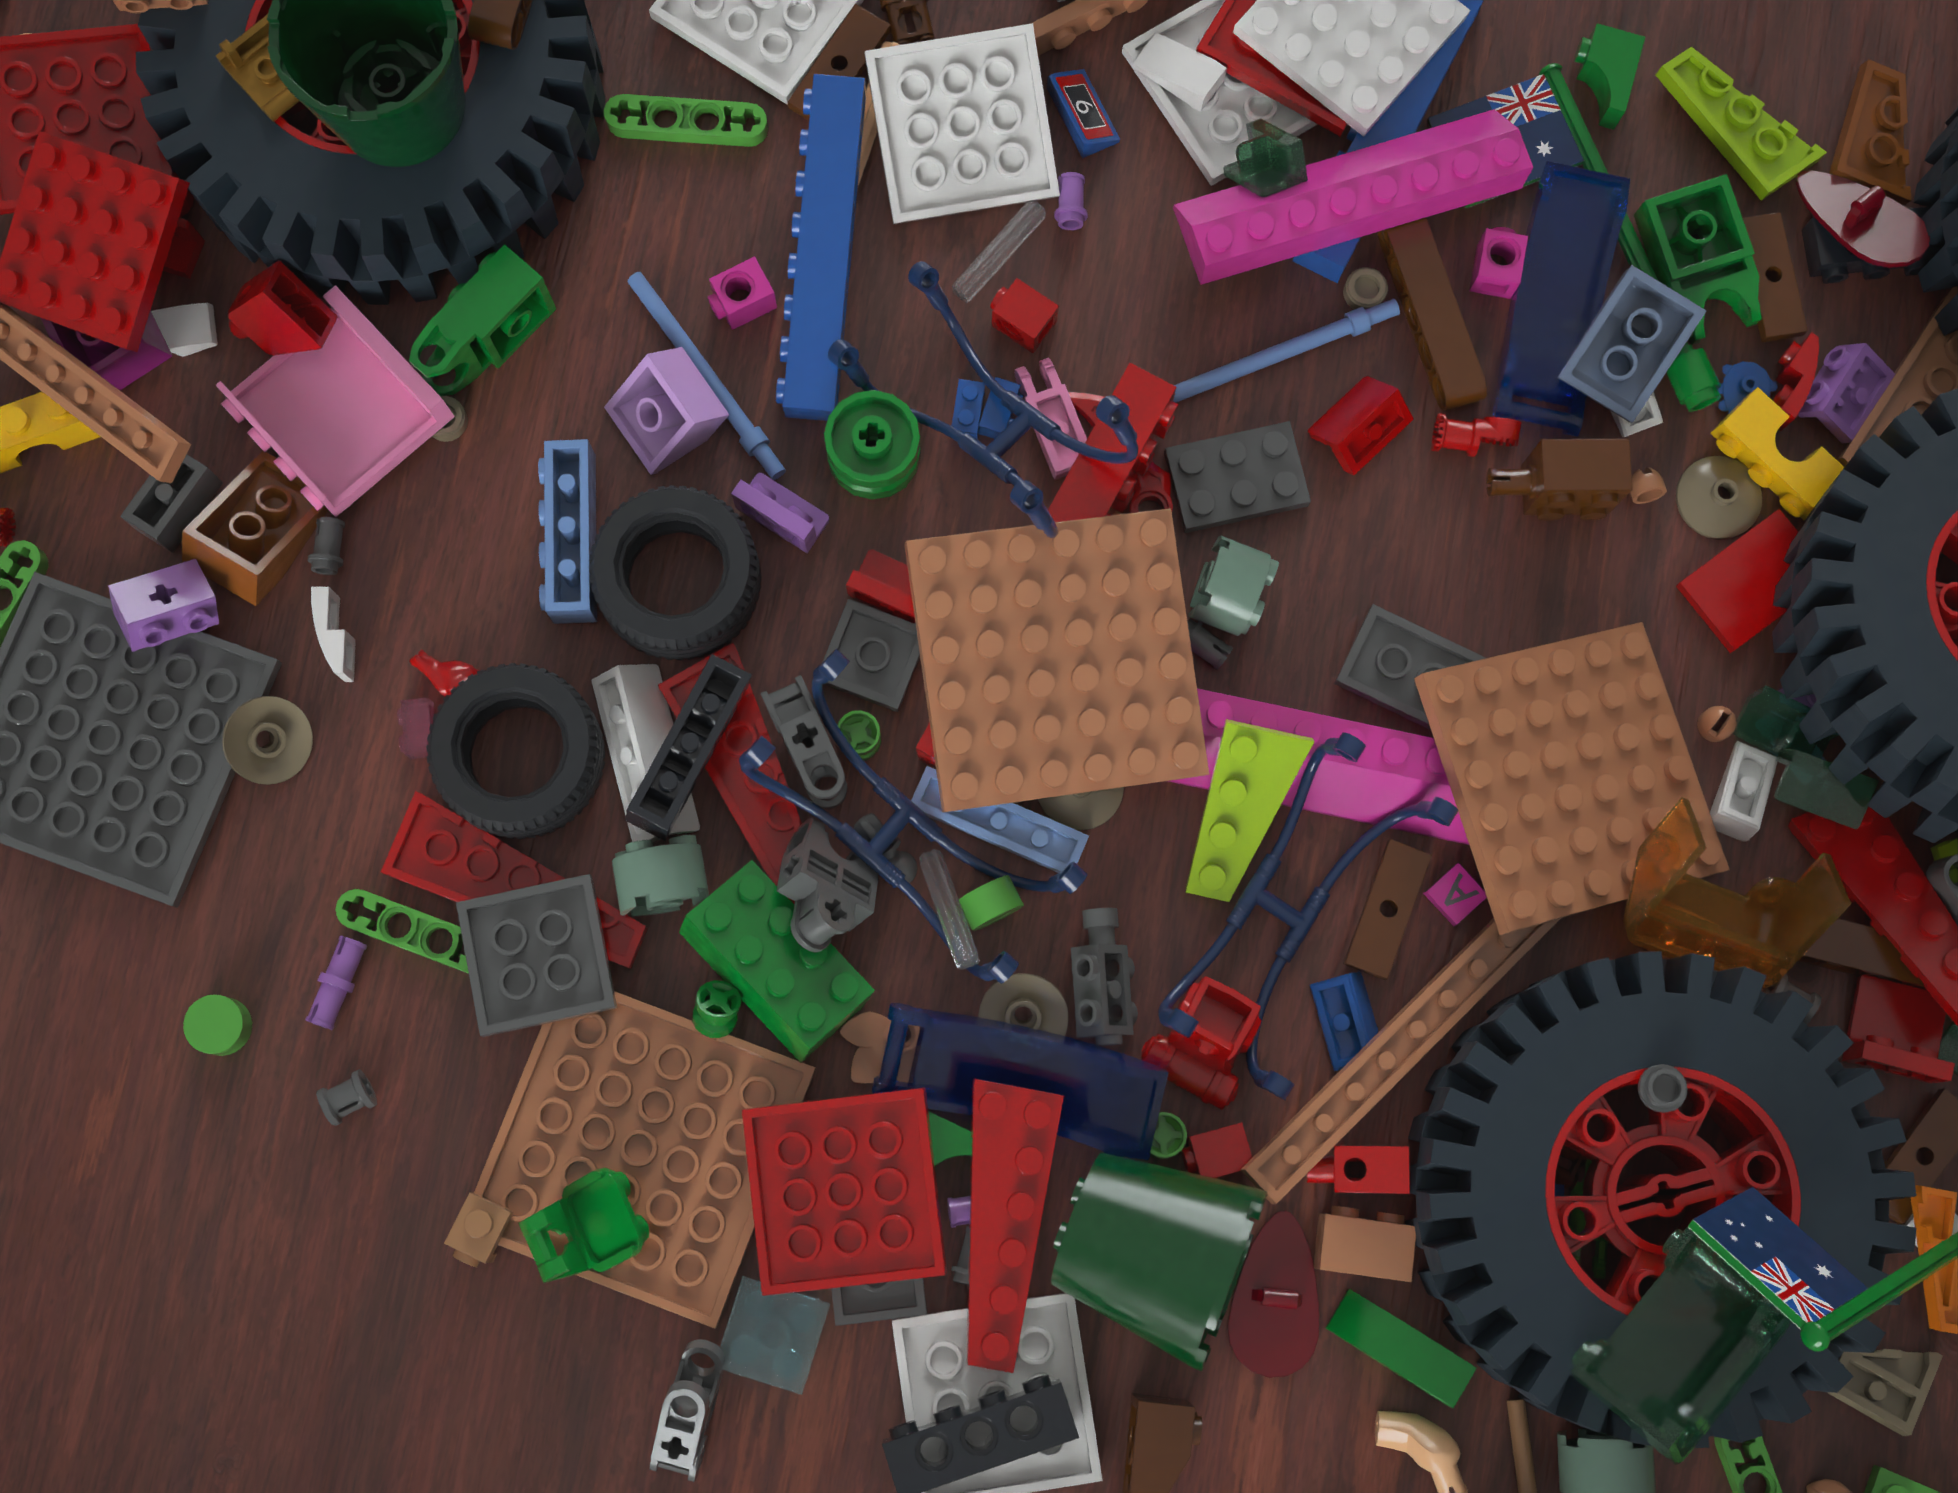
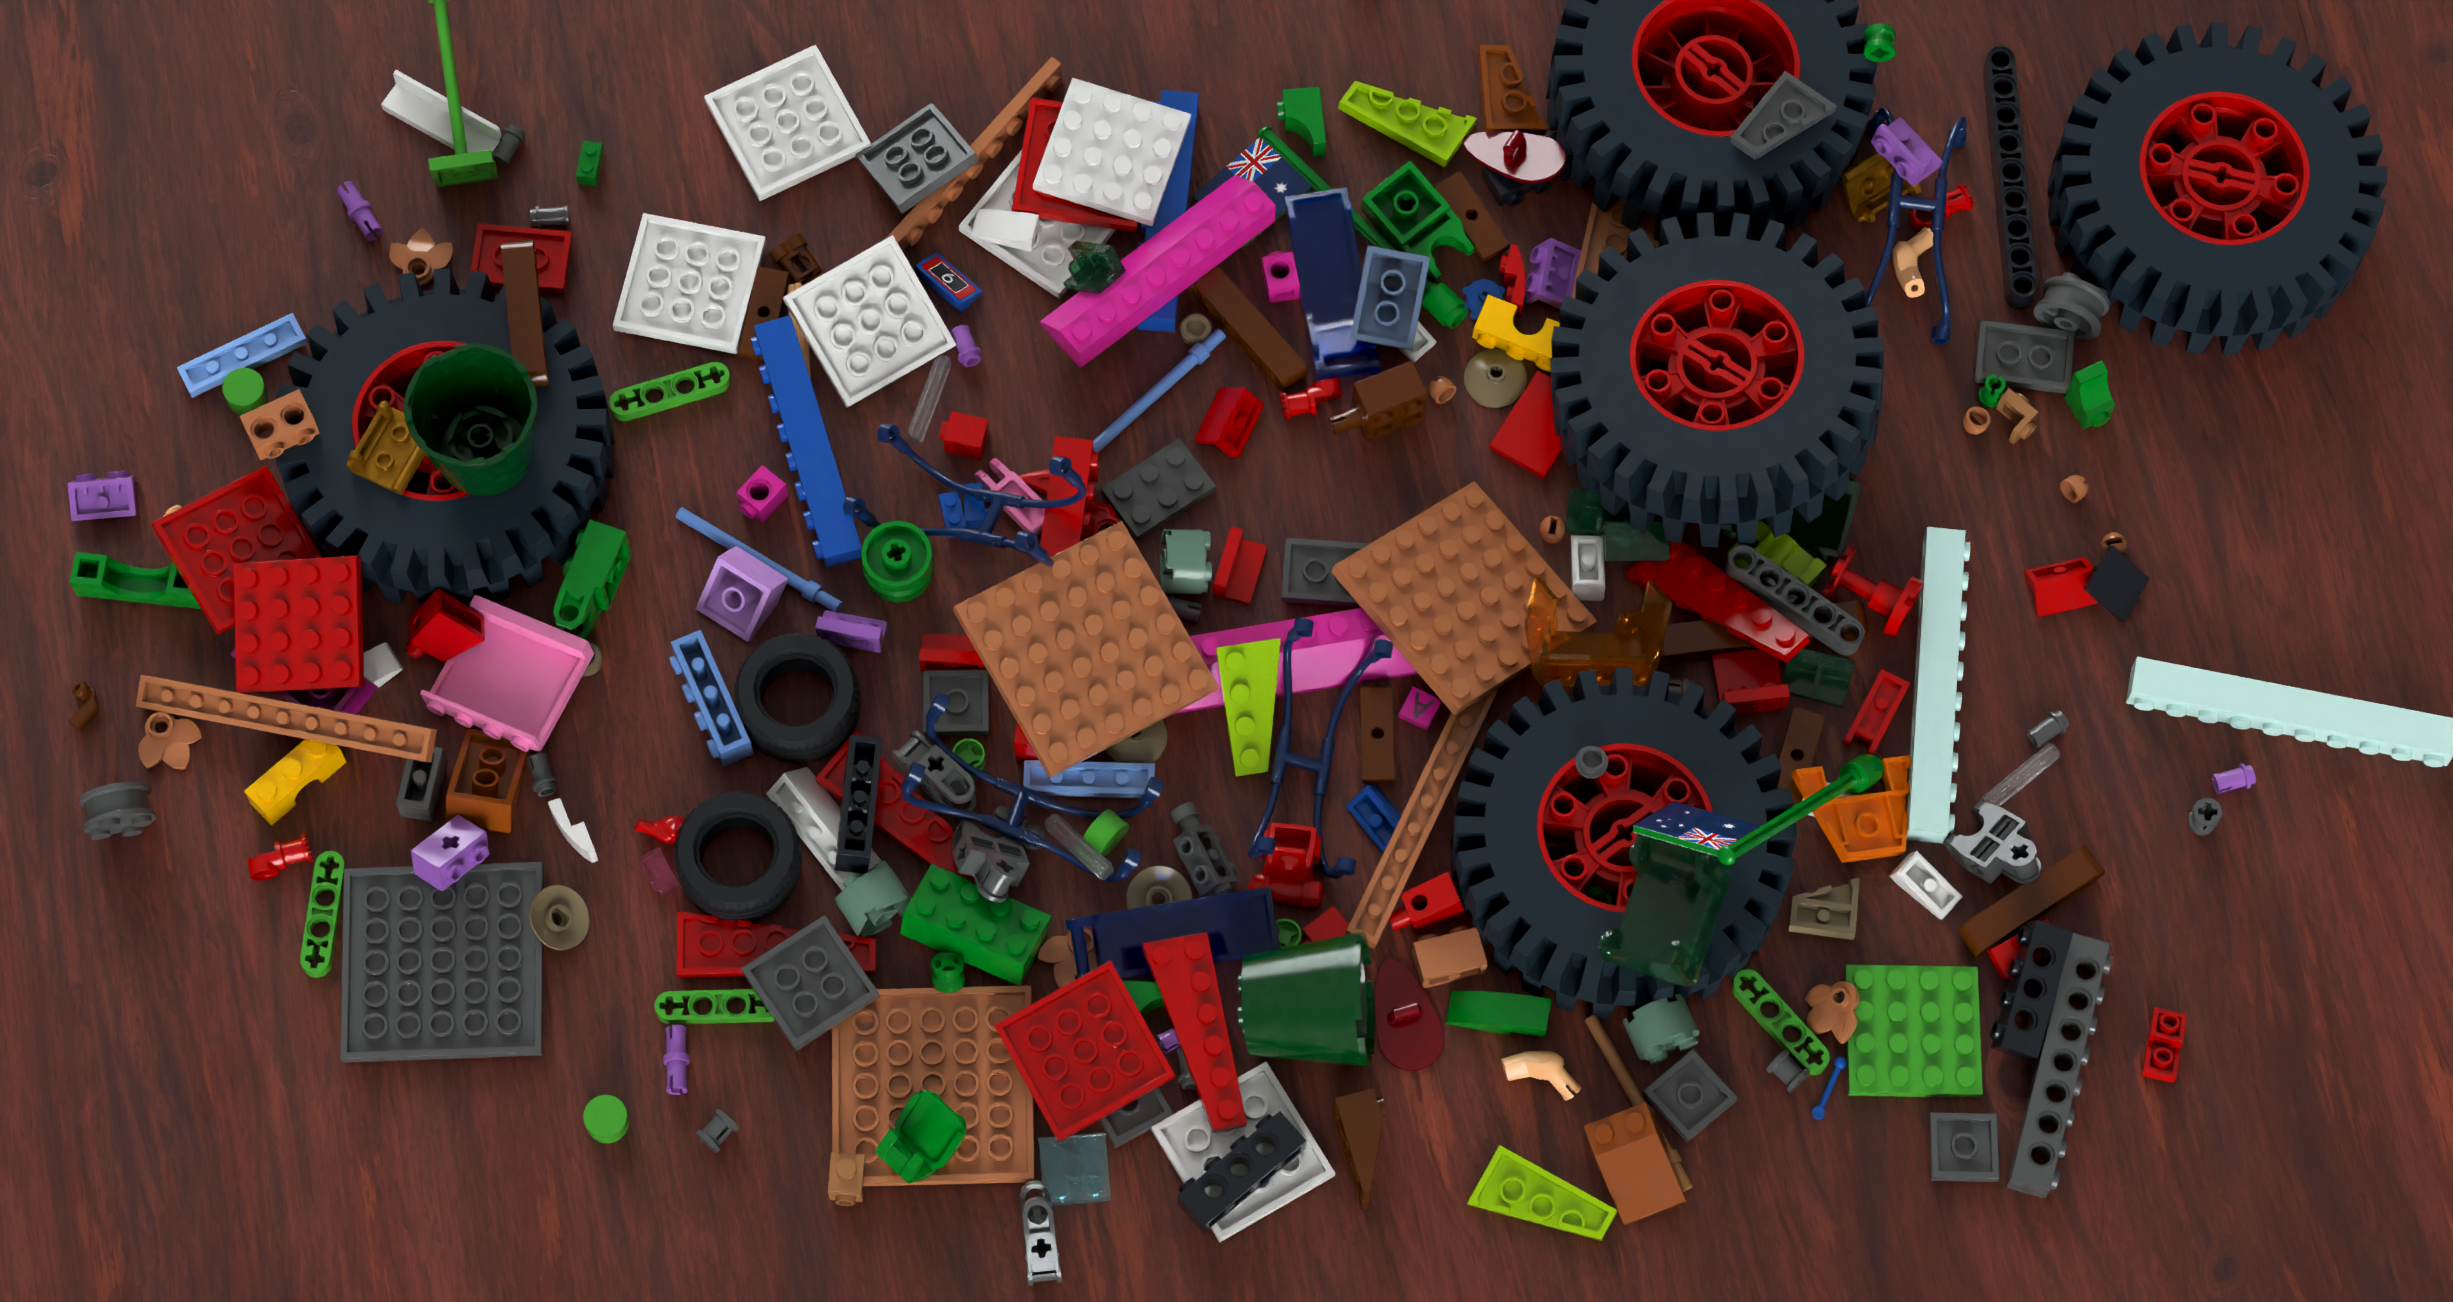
camera: 20 degrees left, 10 degrees down
(1298, 619) = (1239, 568): none -> red panel

